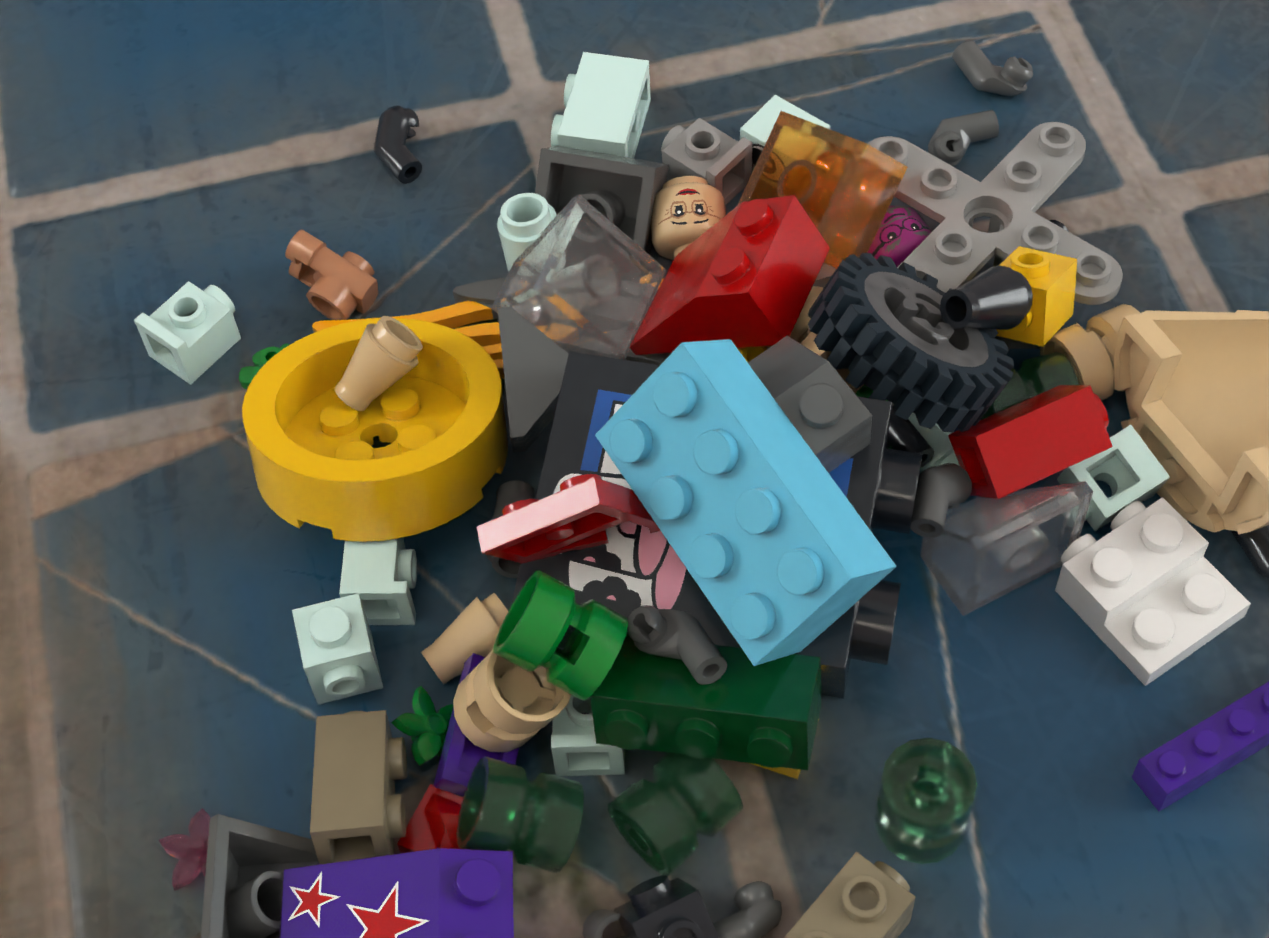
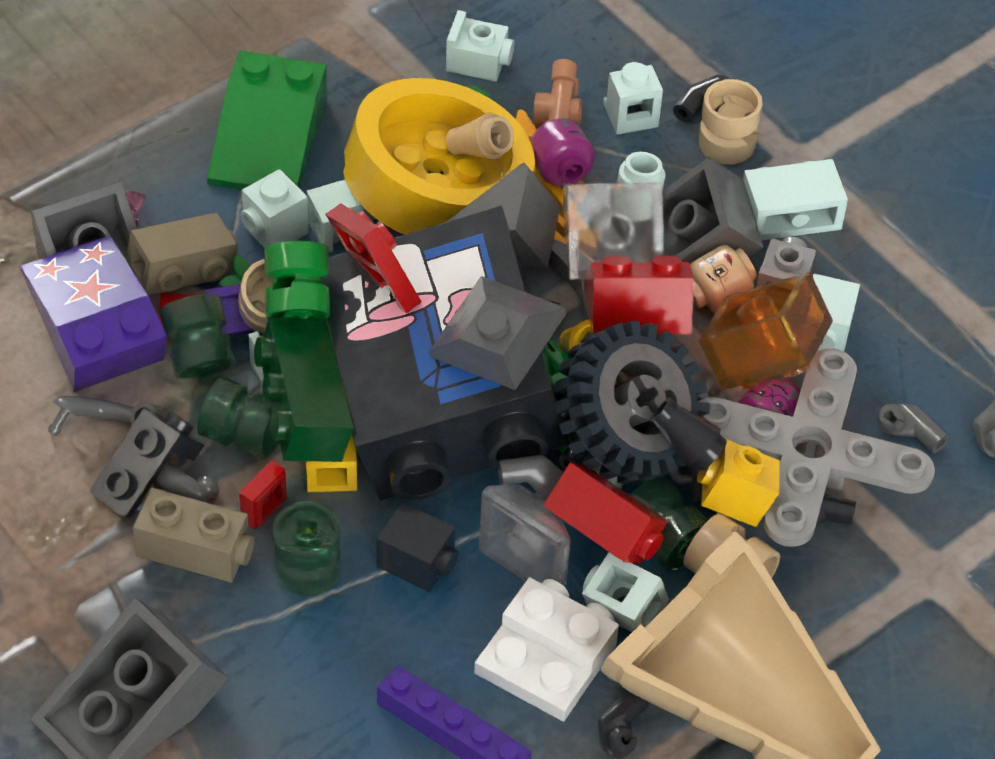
camera: 60 degrees right, 5 degrees down
(175, 608) = (268, 119): none -> green slope
(372, 203) = (631, 87): none -> light aqua brick
(431, 291) = (562, 152): none -> magenta head
(465, 125) = (730, 121): none -> tan wheel
(677, 636) = (329, 345): dark grey arm -> none
(743, 500) = (414, 318): medium azure brick -> none
(806, 828) = (264, 494): none -> red tile
(958, 675) = (417, 547): none -> black brick

